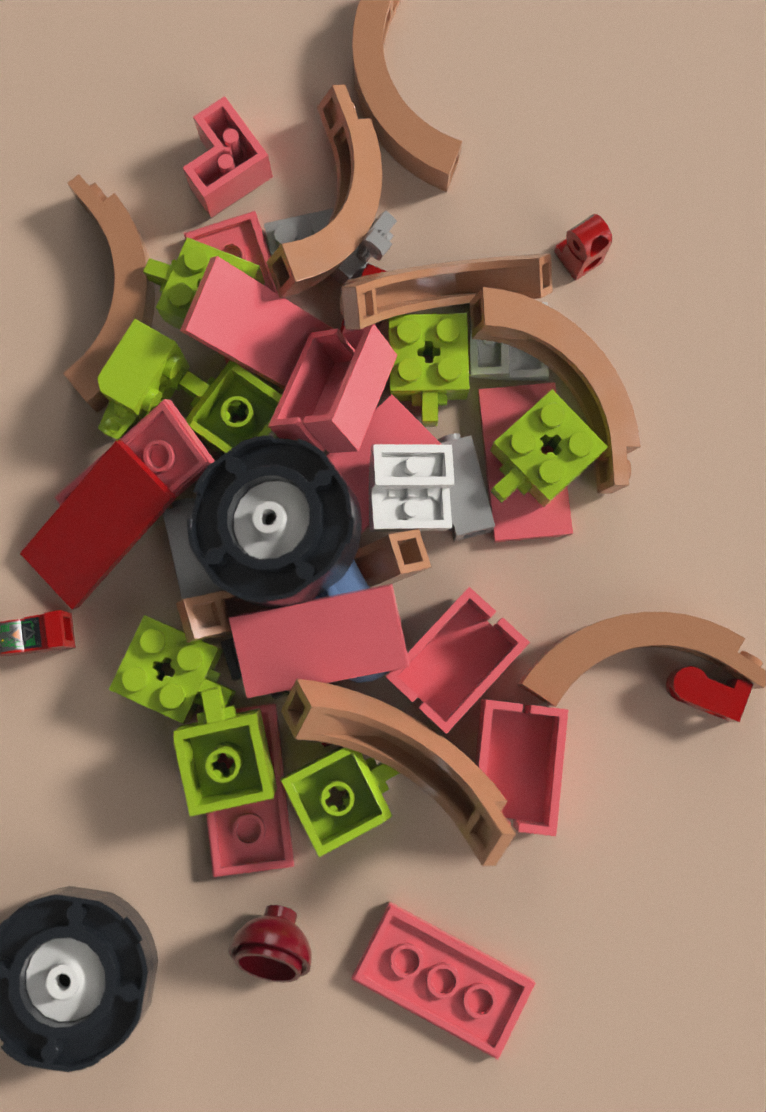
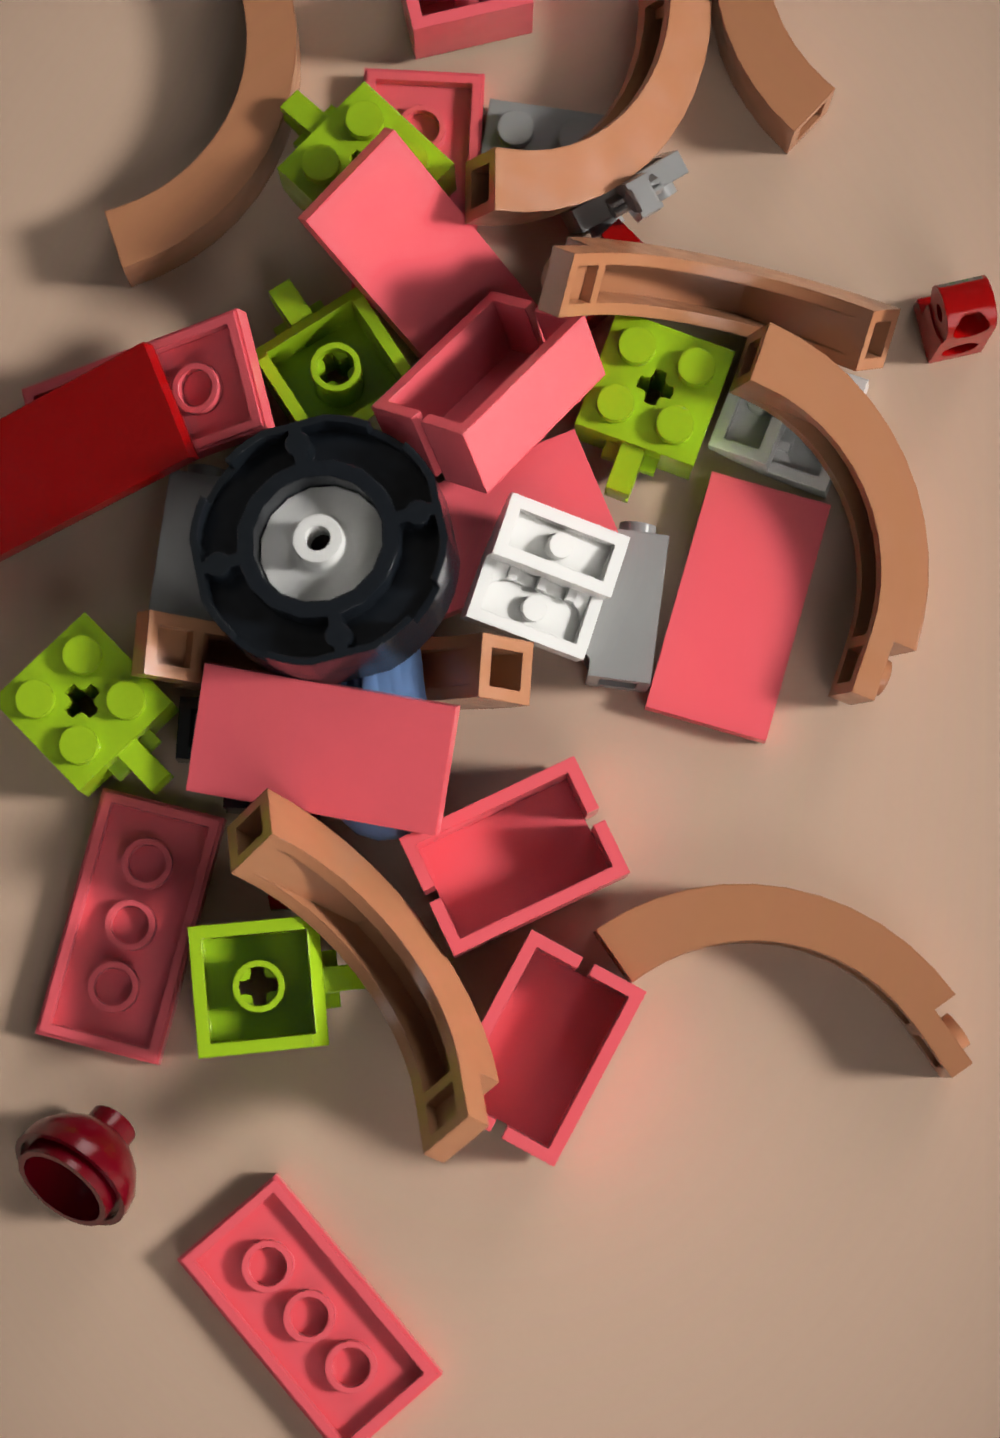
camera: 20 degrees right, 0 degrees up
(139, 377) = (212, 262): lime hinge -> none
(218, 731) = (155, 842): lime hinge -> none
(529, 469) = (757, 637): lime hinge -> none
(696, 690) = (850, 1040): red leg -> none

